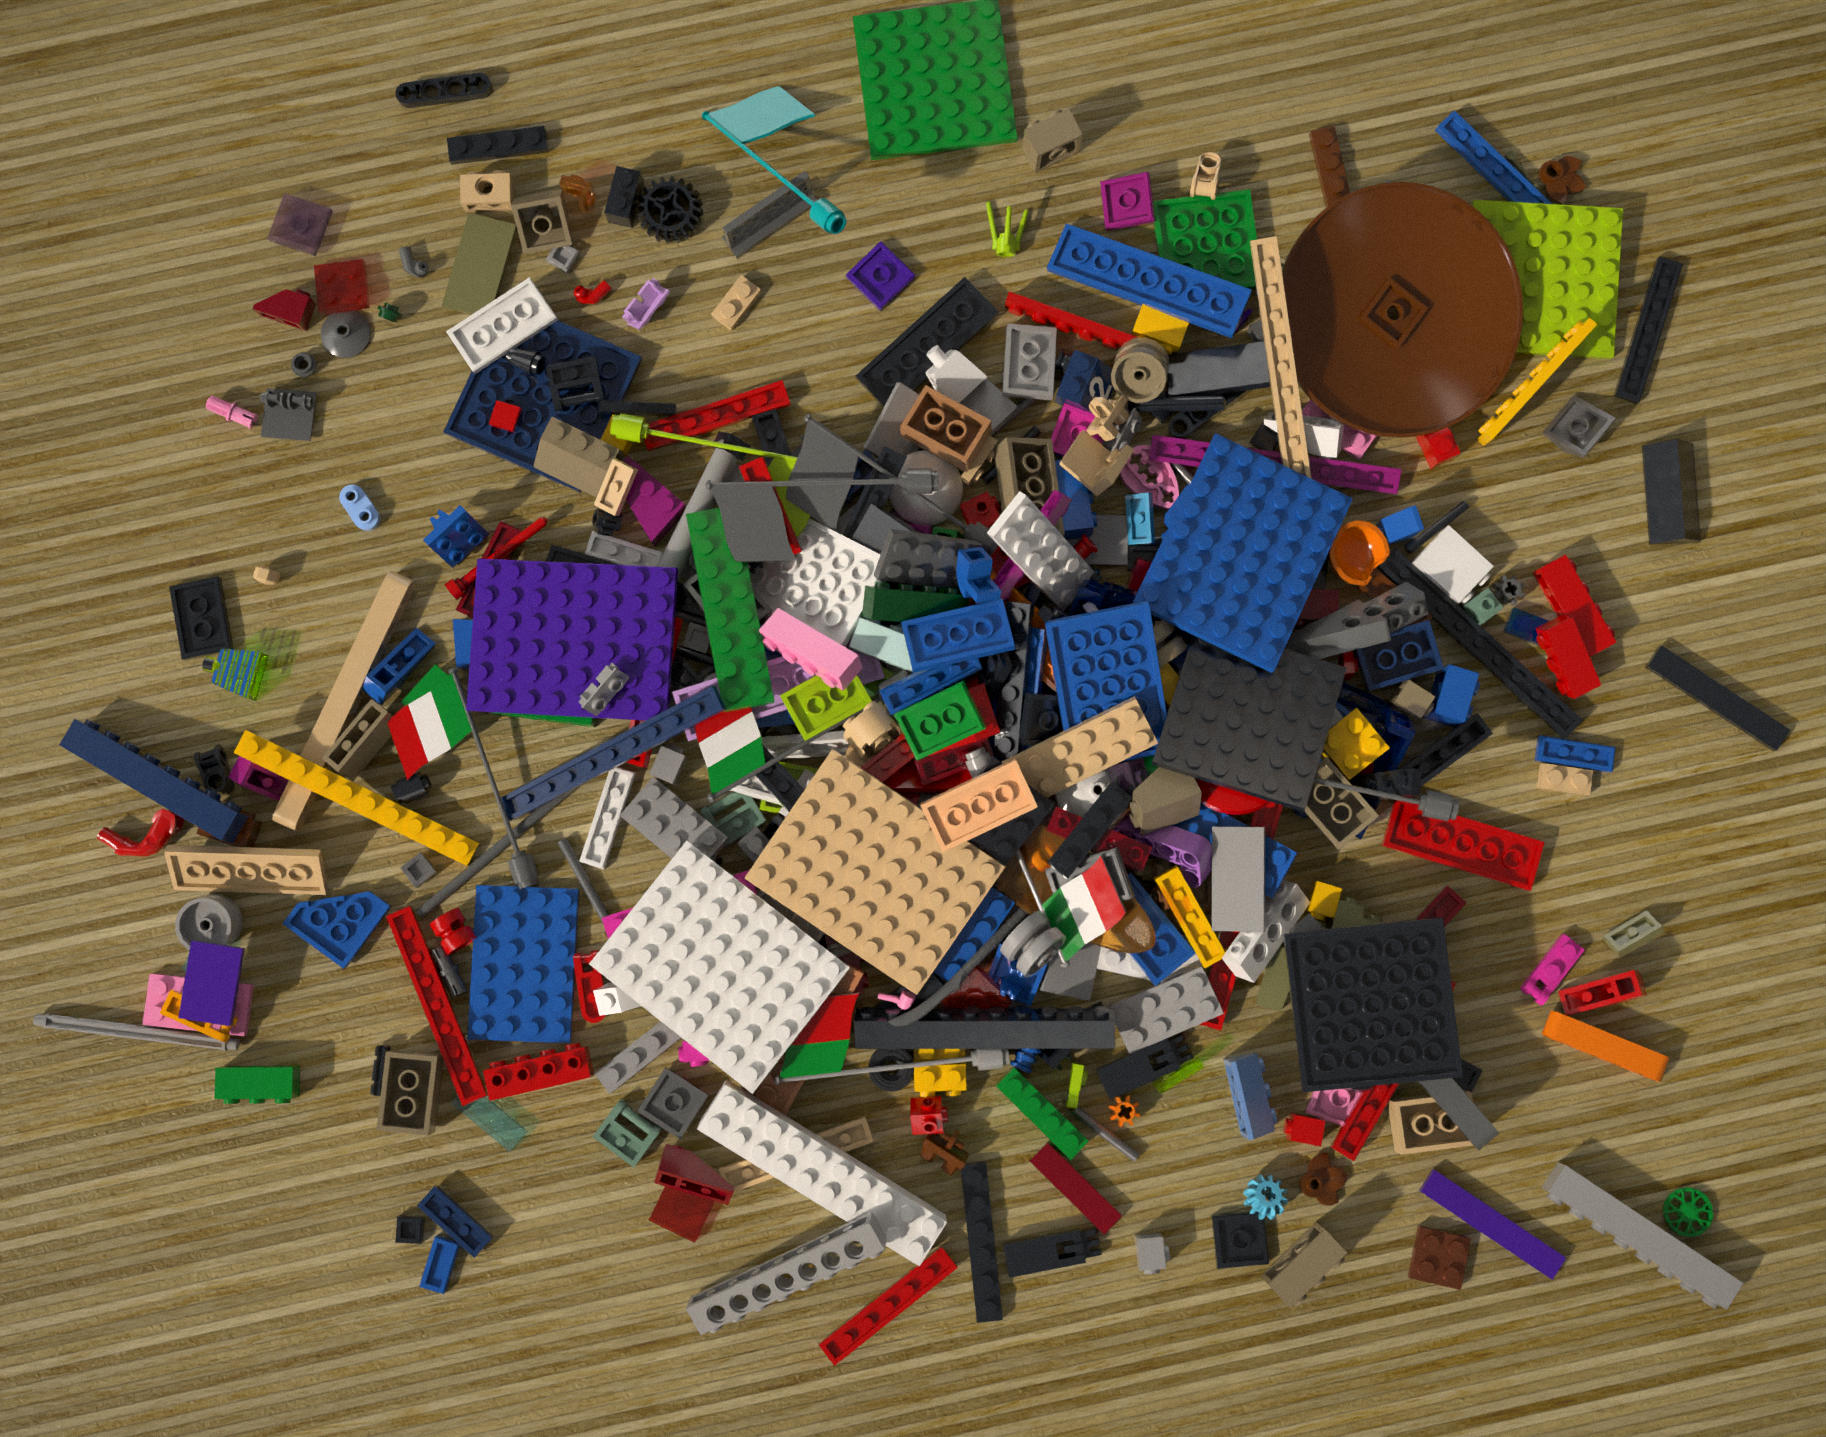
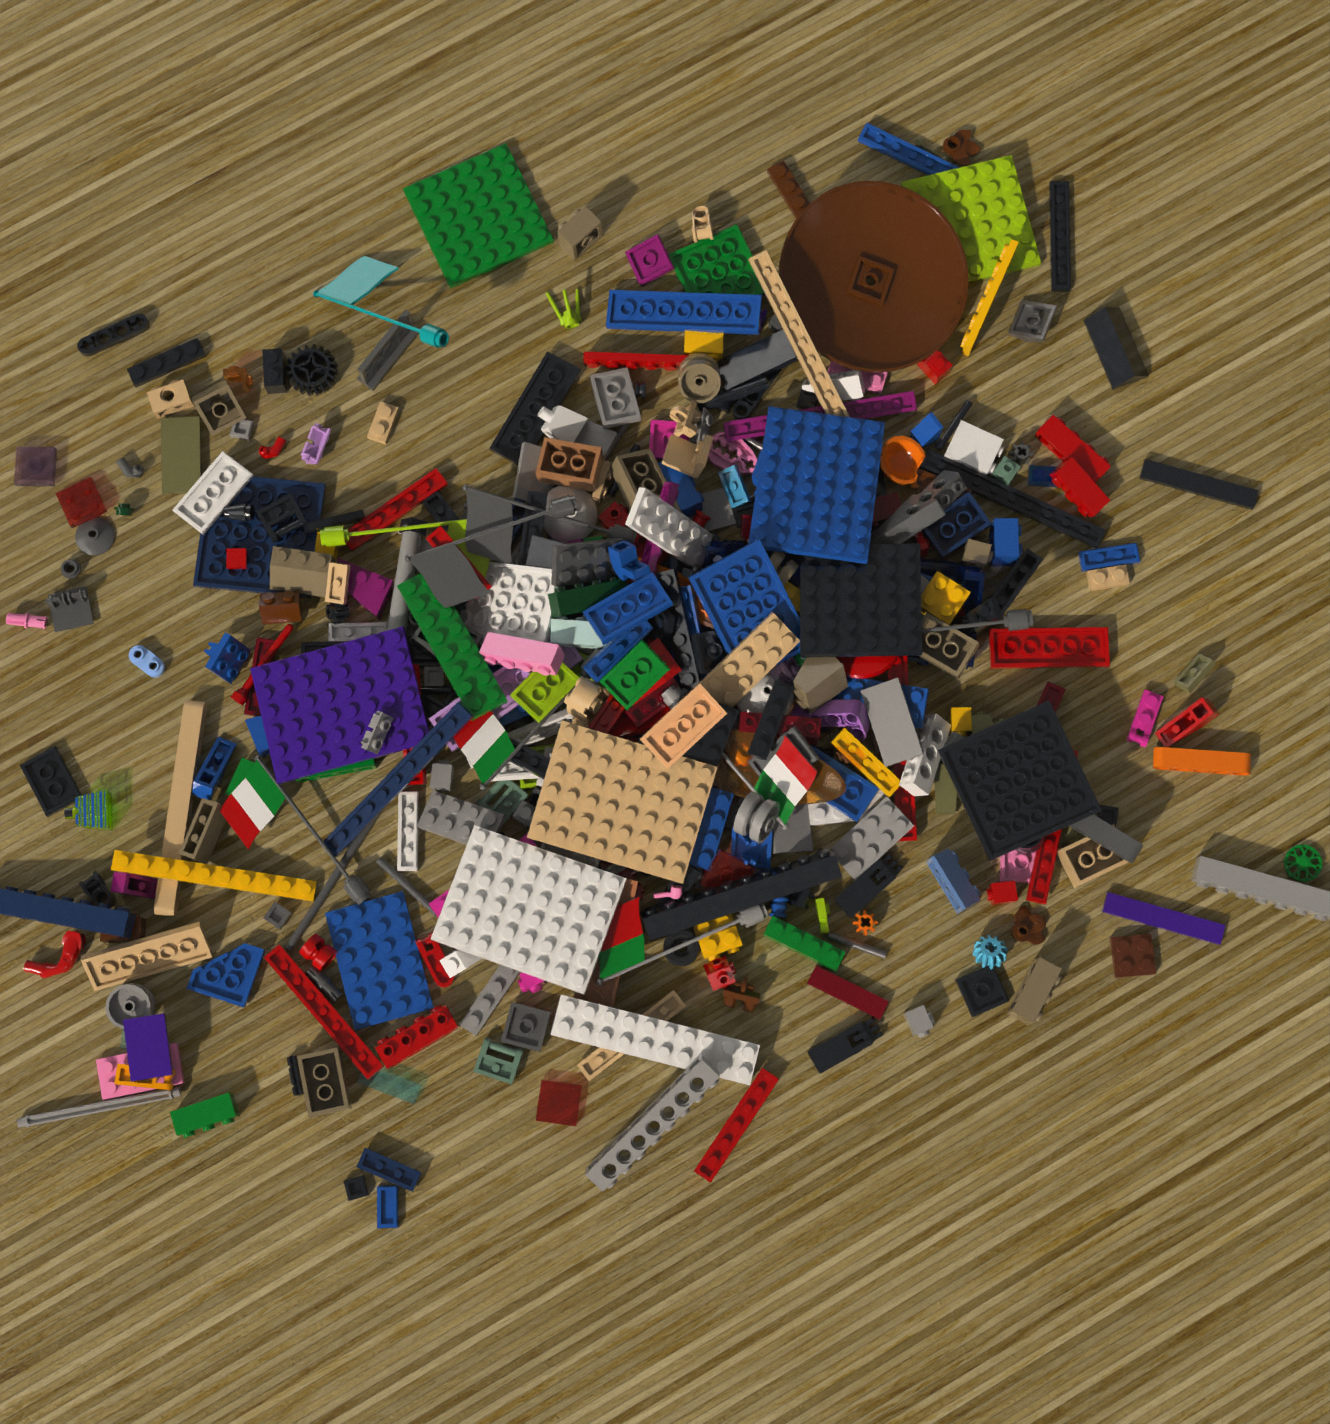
camera: 20 degrees left, 5 degrees down
(266, 576) = (92, 733): tan tile -> none
(288, 308) = (45, 530): dark red slope -> none
(411, 789) = (253, 856): black brick -> none
(539, 494) = (280, 607): none -> reddish brown brick
(688, 1173) = (554, 1074): dark red slope -> none
(880, 276) = (484, 370): dark purple tile -> none
(956, 981) = (708, 865): dark grey piece -> none
(981, 1242) = (790, 1055): black plate -> none
(1084, 380) = (660, 399): dark blue slope -> none
(1179, 1075) = (896, 883): clear neon green tile -> none

